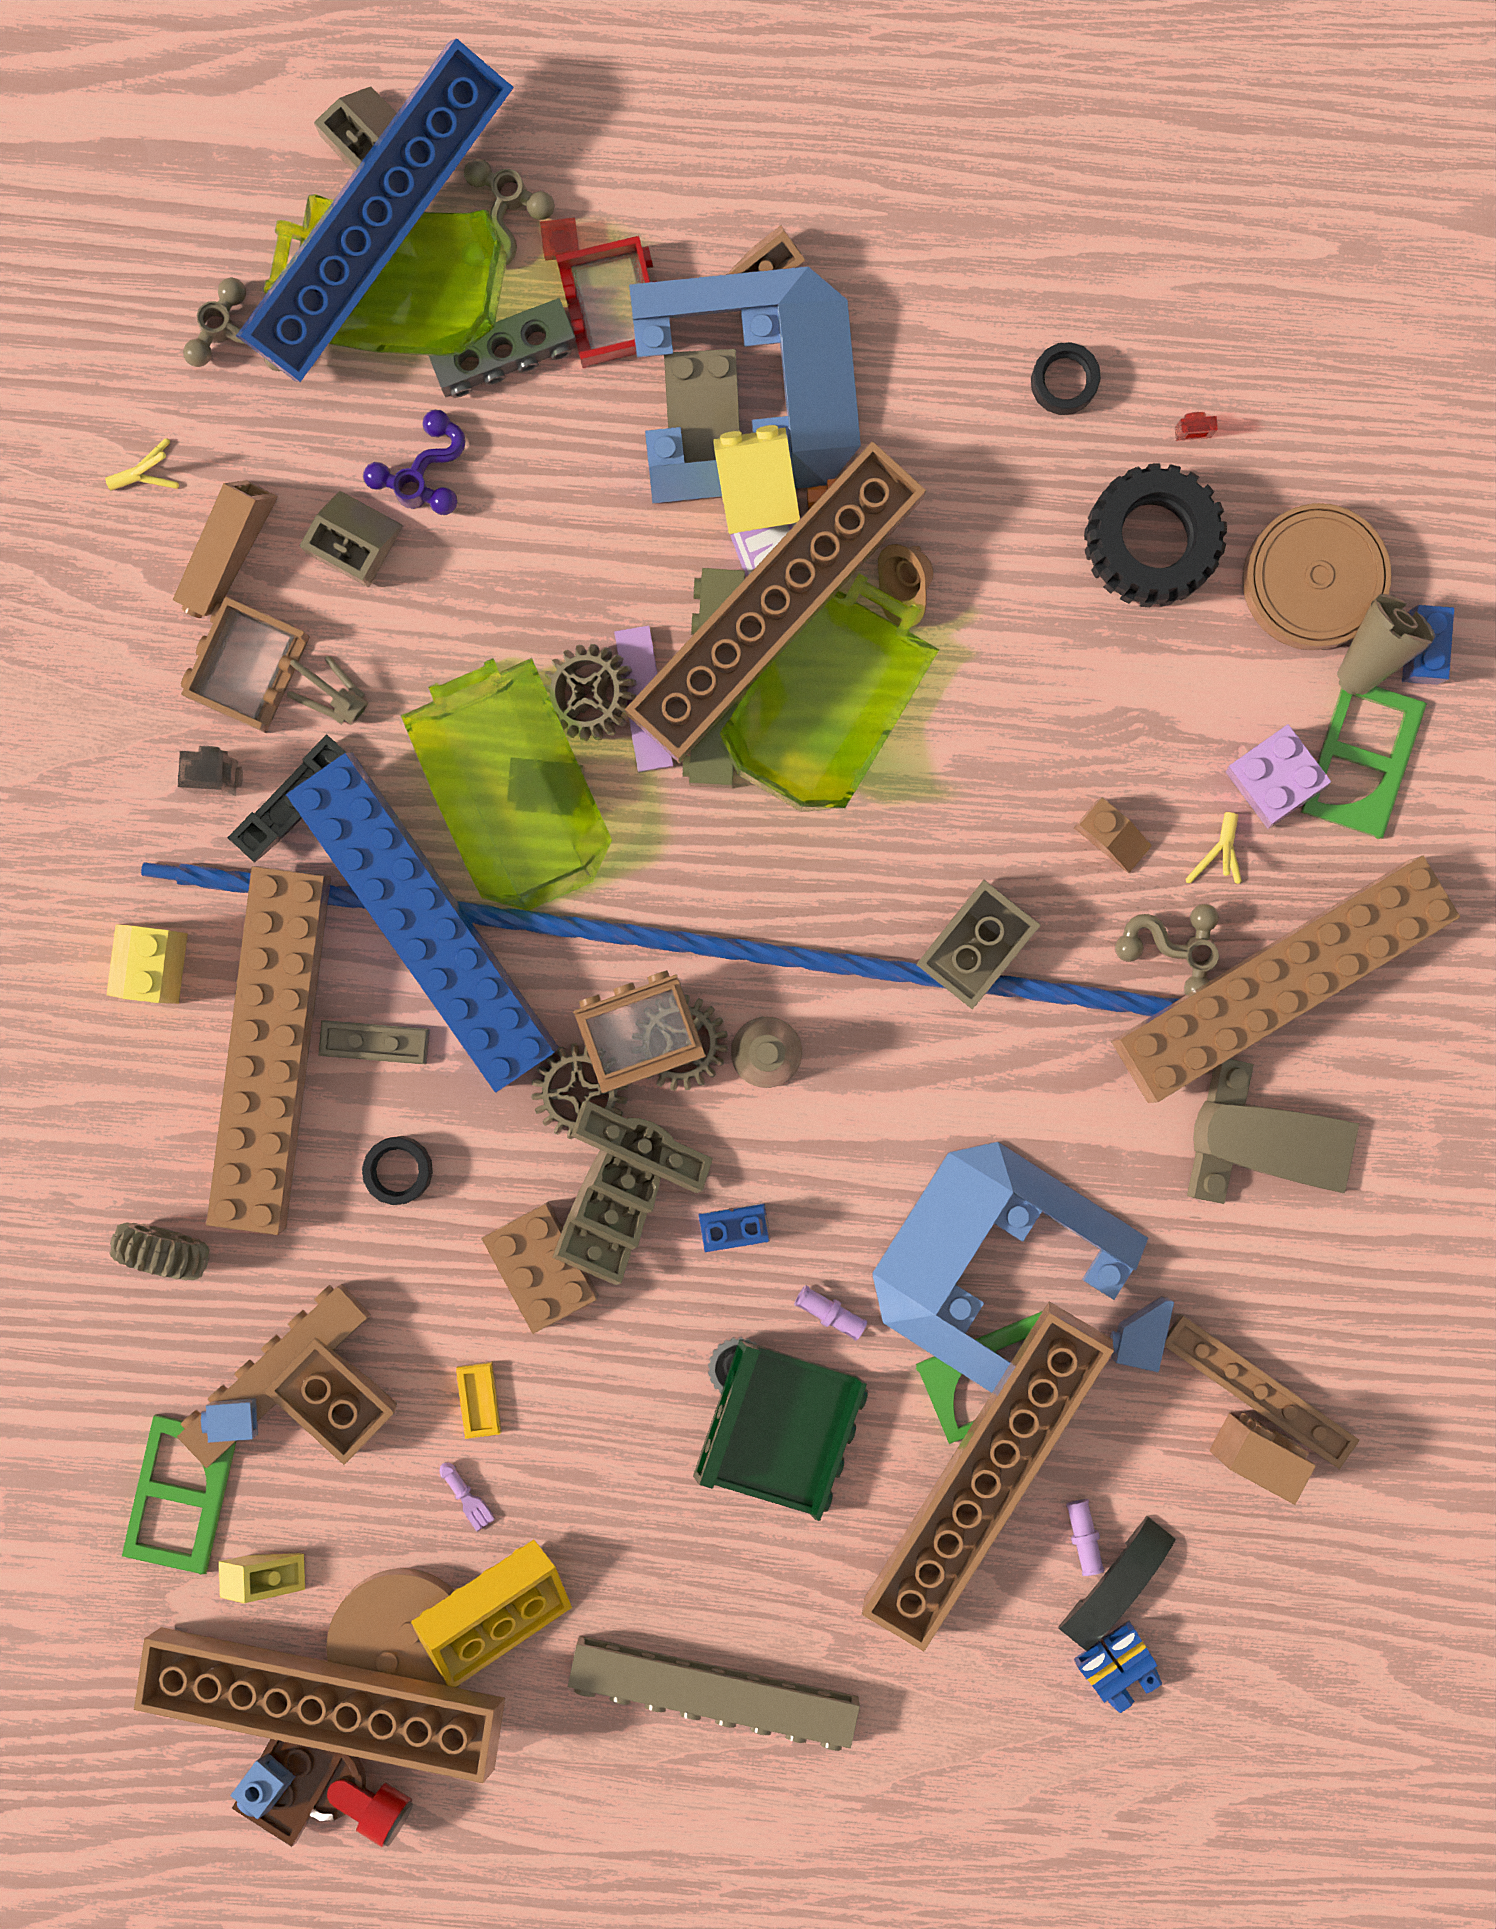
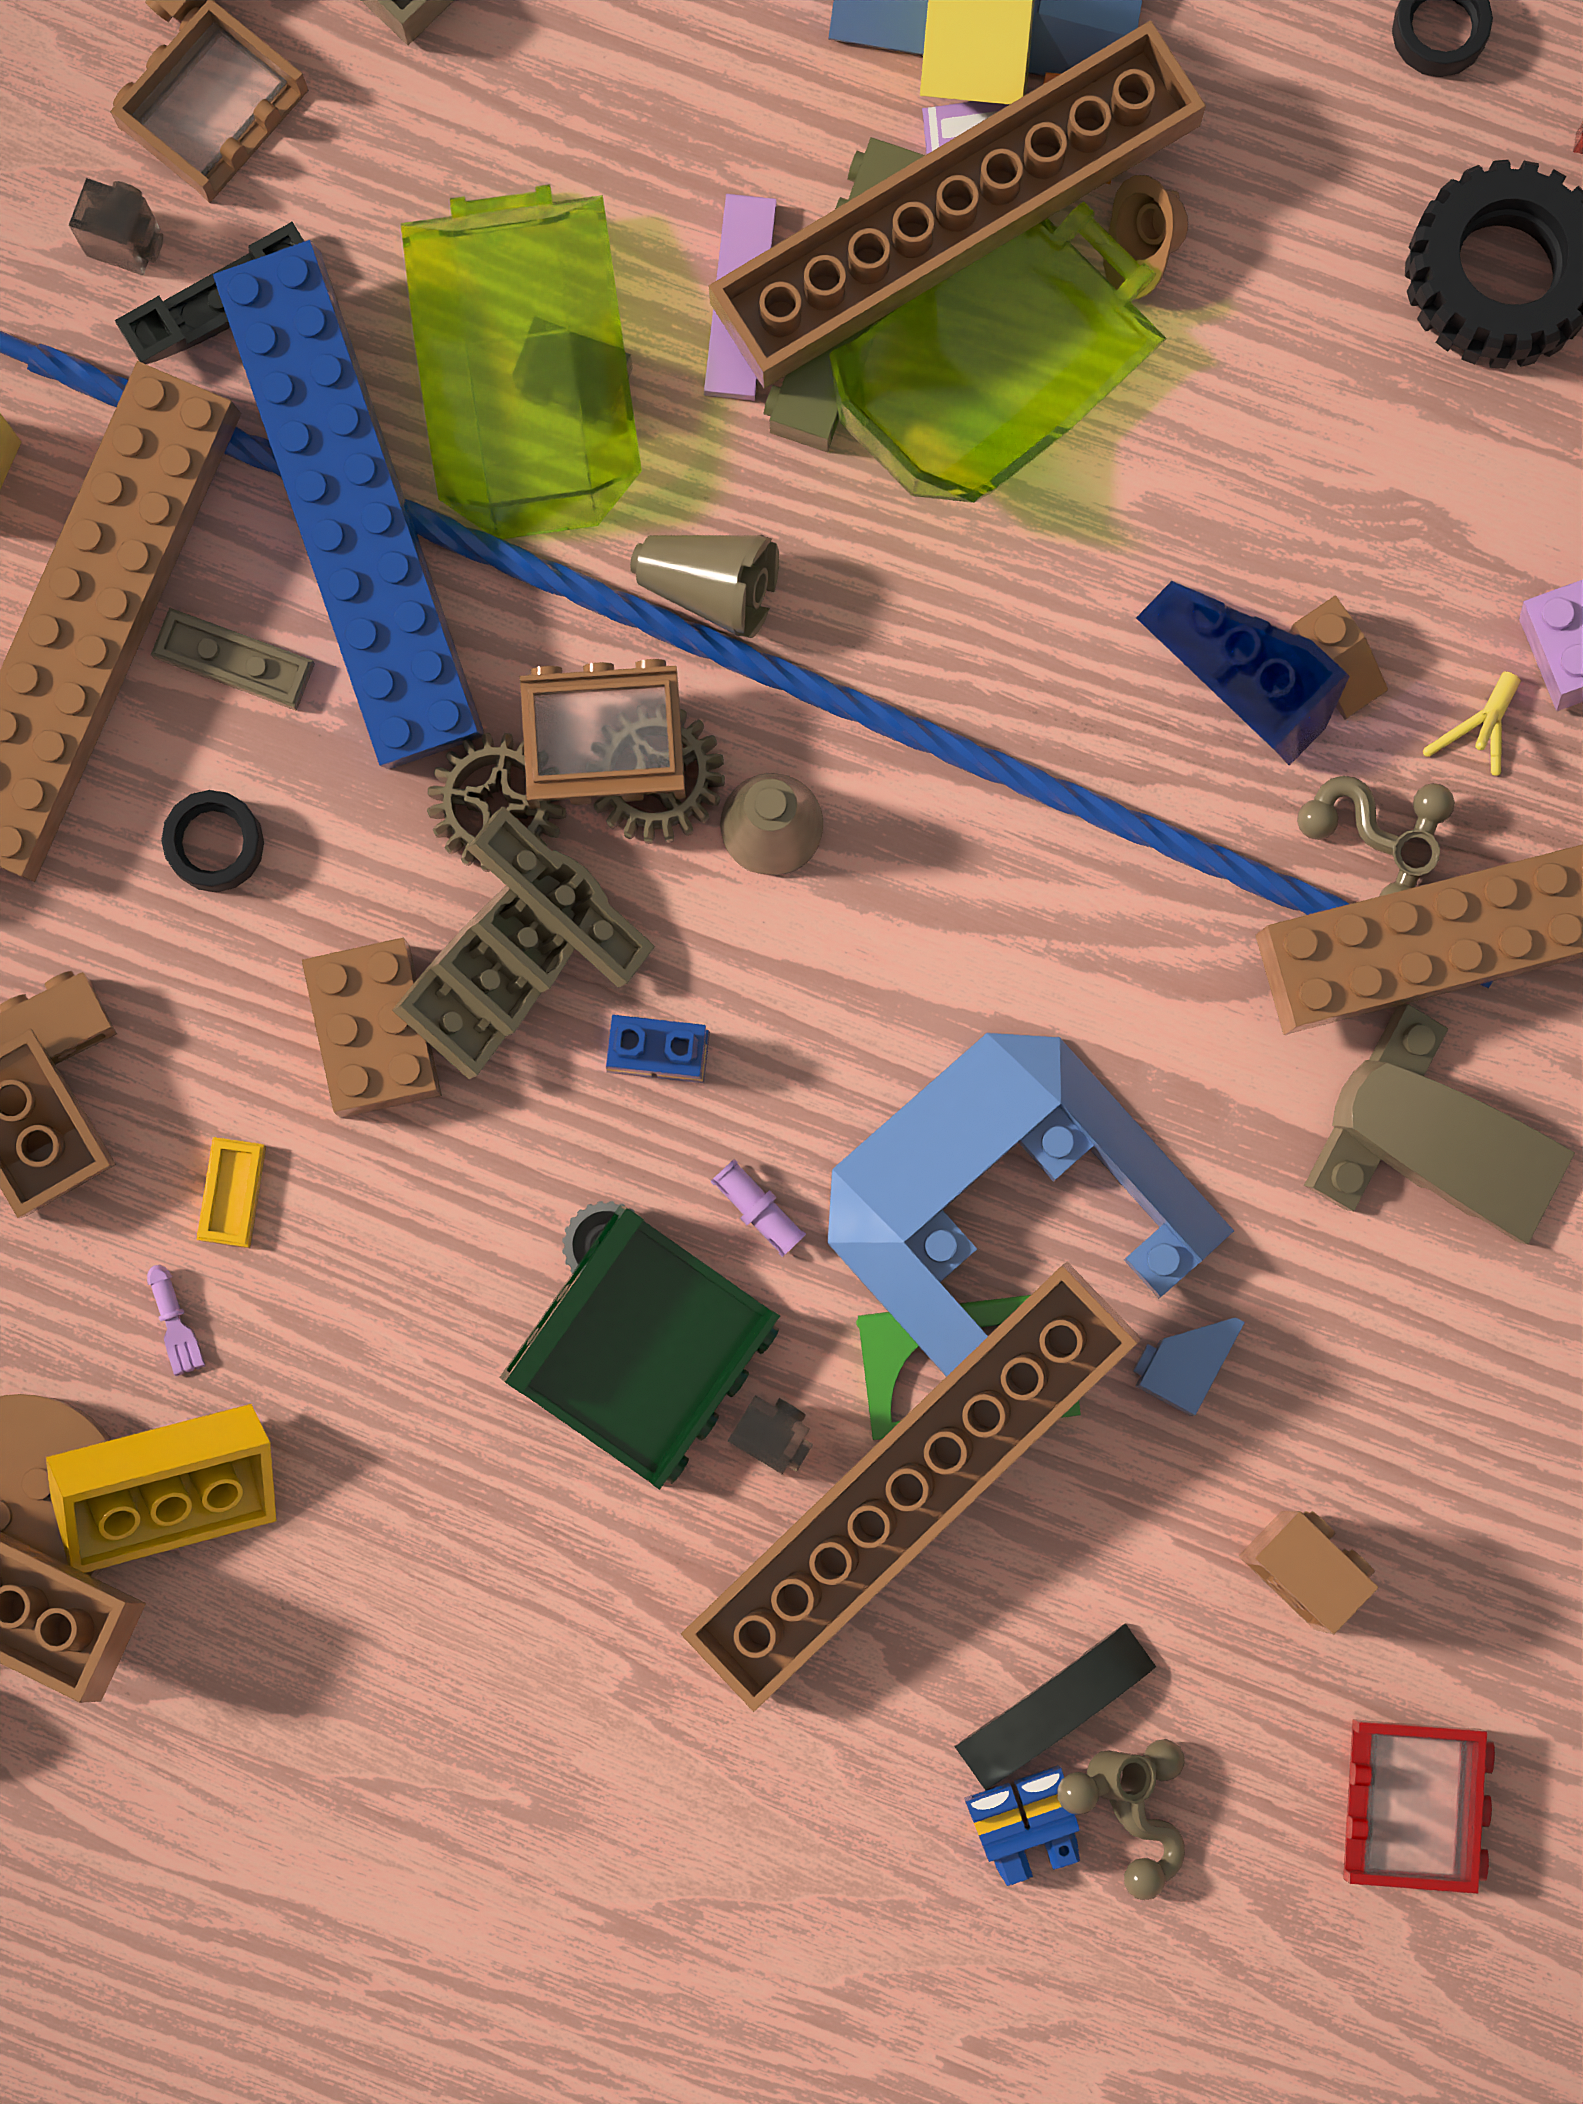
camera: 20 degrees right, 5 degrees down
(347, 704) = (333, 191): dark tan plant -> none
(599, 681) = (705, 239): dark tan gear -> none
(679, 899) = (711, 576): none -> dark tan cone
(714, 1693) = (440, 1694): dark tan brick -> none
(884, 1465) = (772, 1435): none -> clear smoke brick
(978, 944) = (1108, 750): dark tan slope -> none
(1061, 860) = (1263, 674): none -> clear blue wedge
(1085, 1537) = (1028, 1625): lavender pin -> none
(1182, 1625) = (1162, 1762): none -> dark tan piece
(1260, 1391) = (1332, 1488): medium nougat plate -> none
(1371, 1584) = (1417, 1806): none -> clear window

